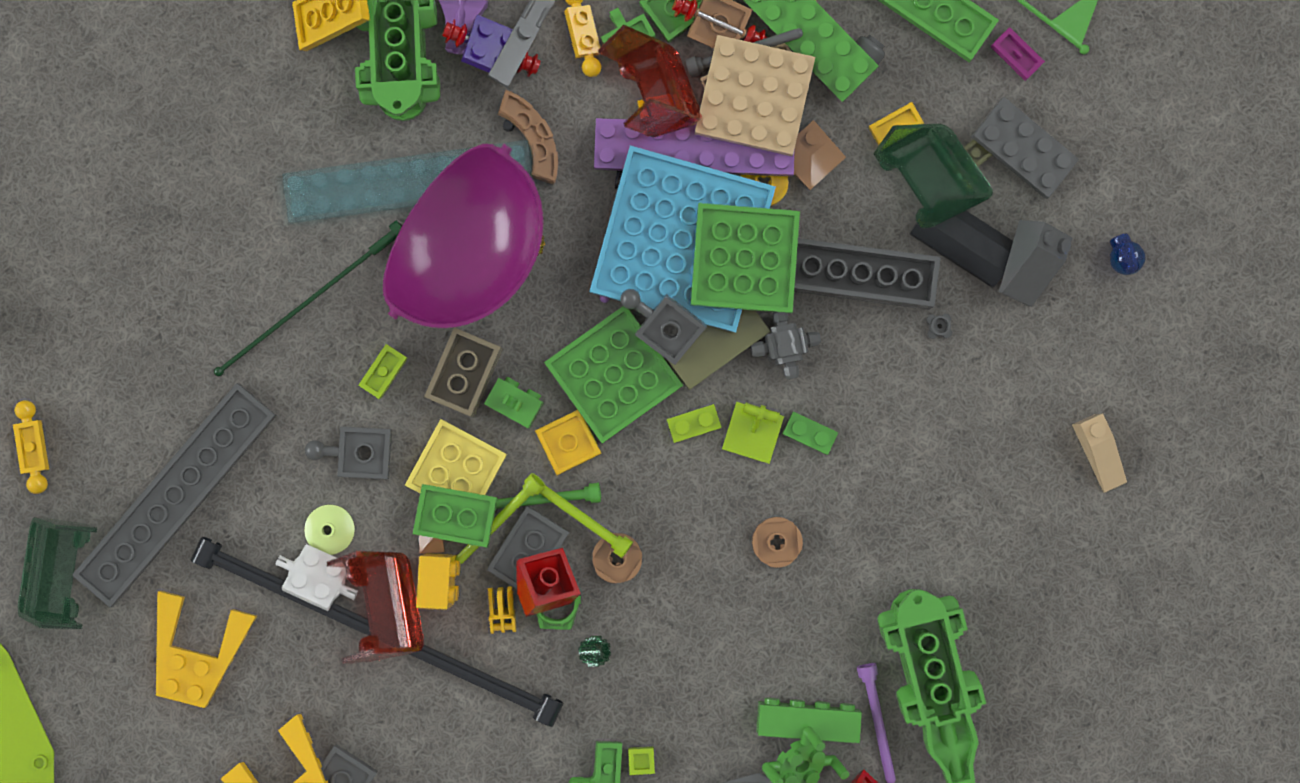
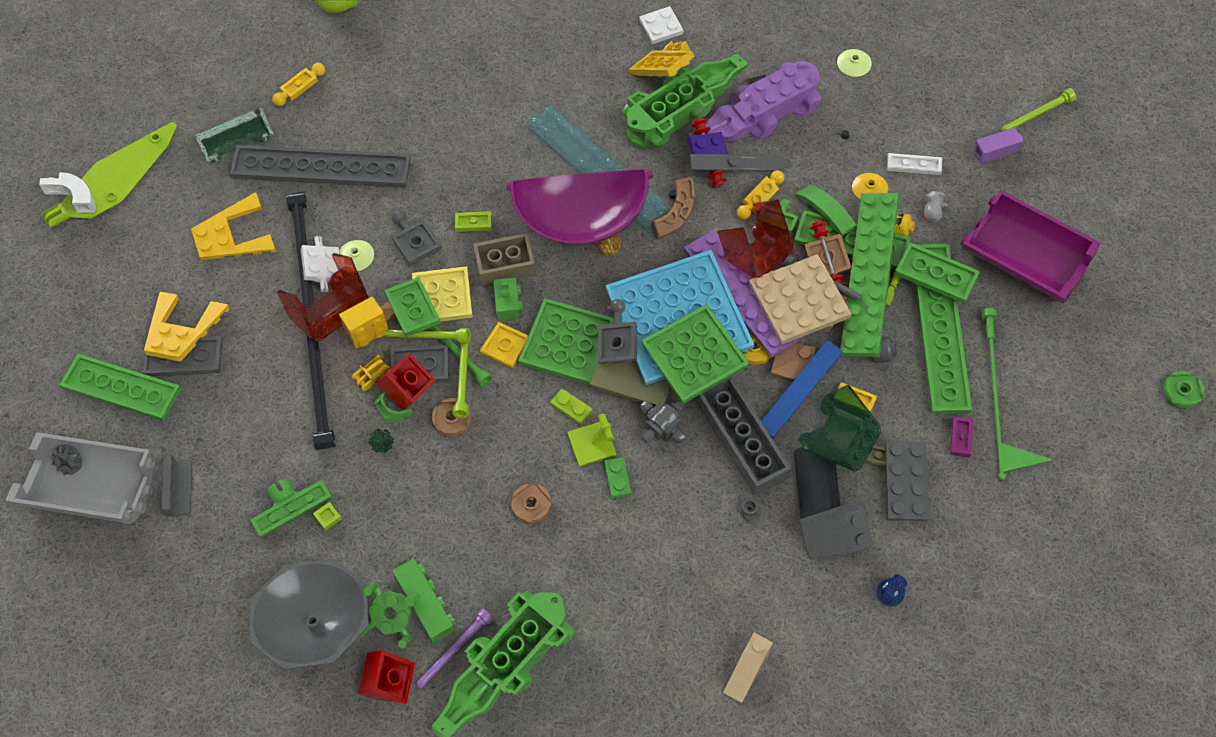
camera: 60 degrees right, 25 degrees down
(374, 249) = (543, 173): dark green piece -> none
(849, 173) = (801, 388): none -> blue tile

